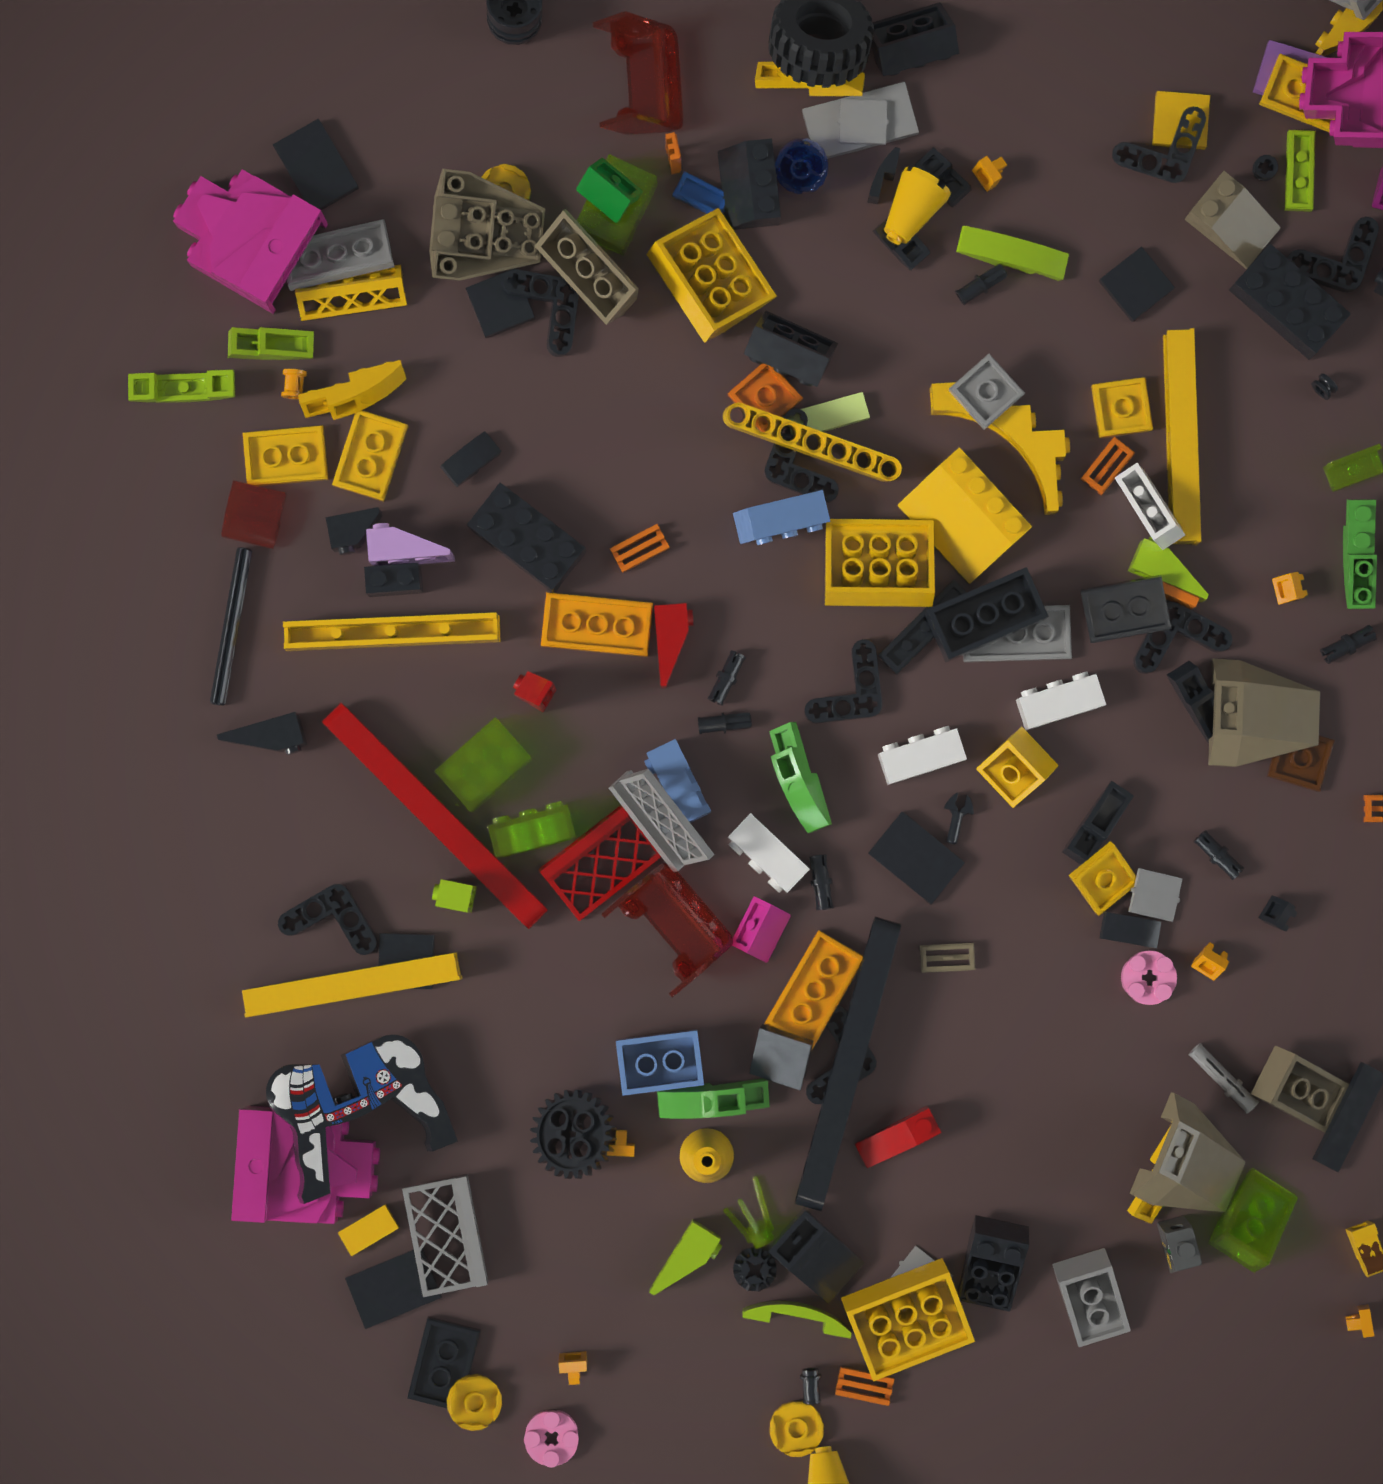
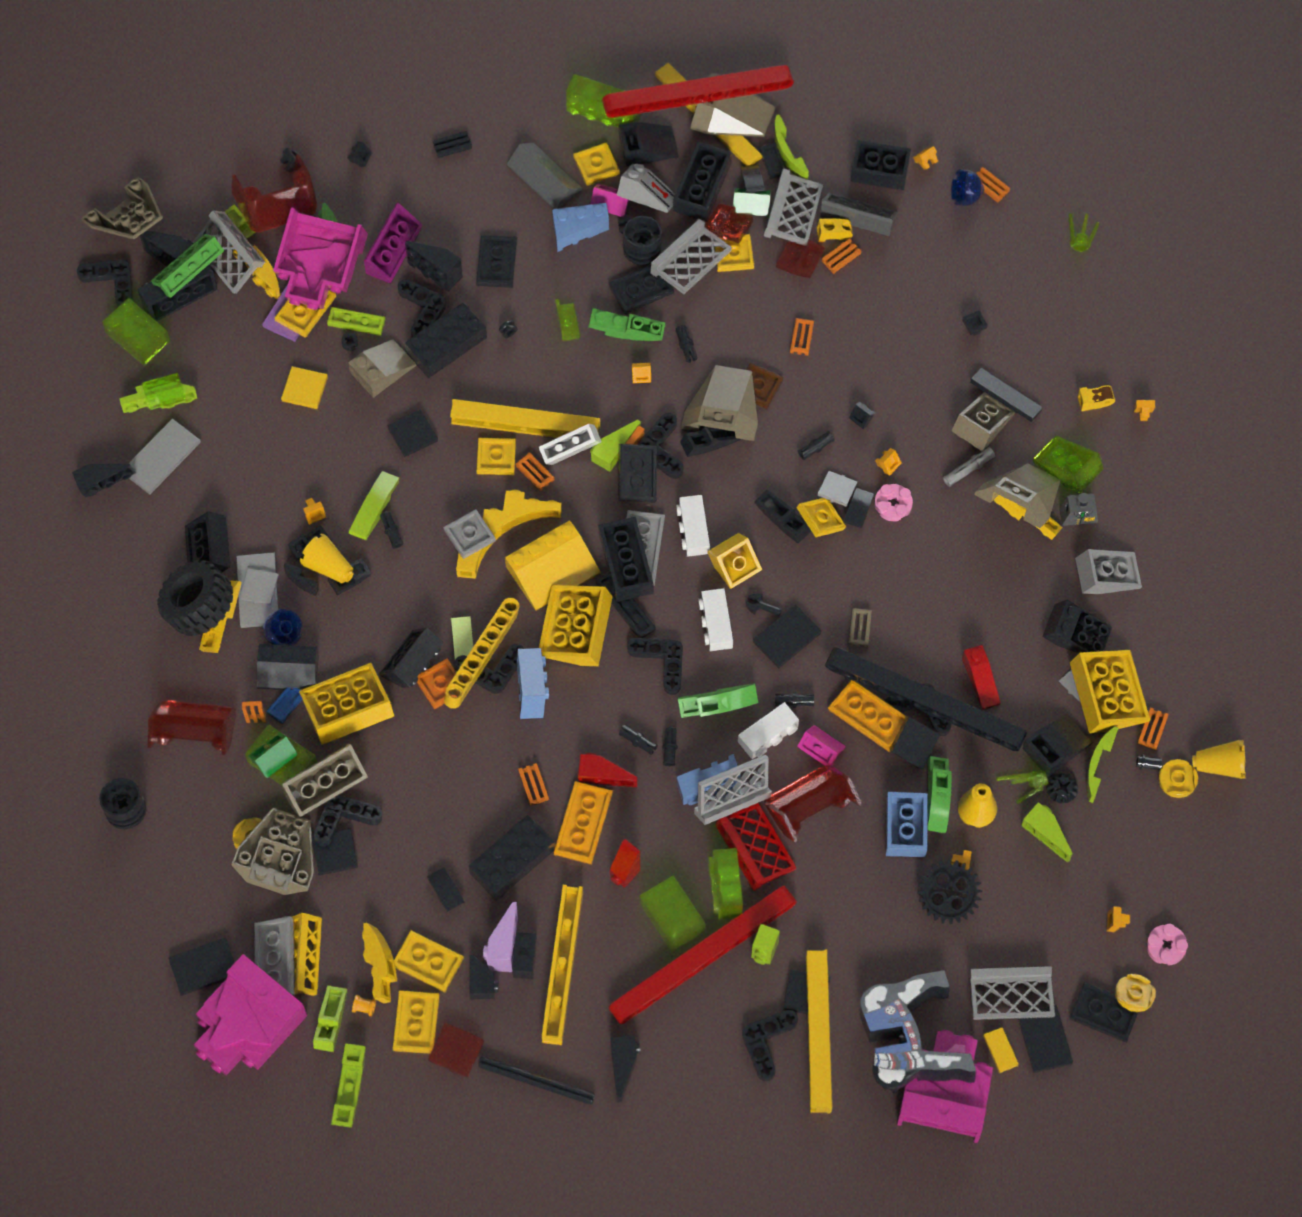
camera: 80 degrees left, 20 degrees down
(1173, 156) = (330, 395): black beam -> none

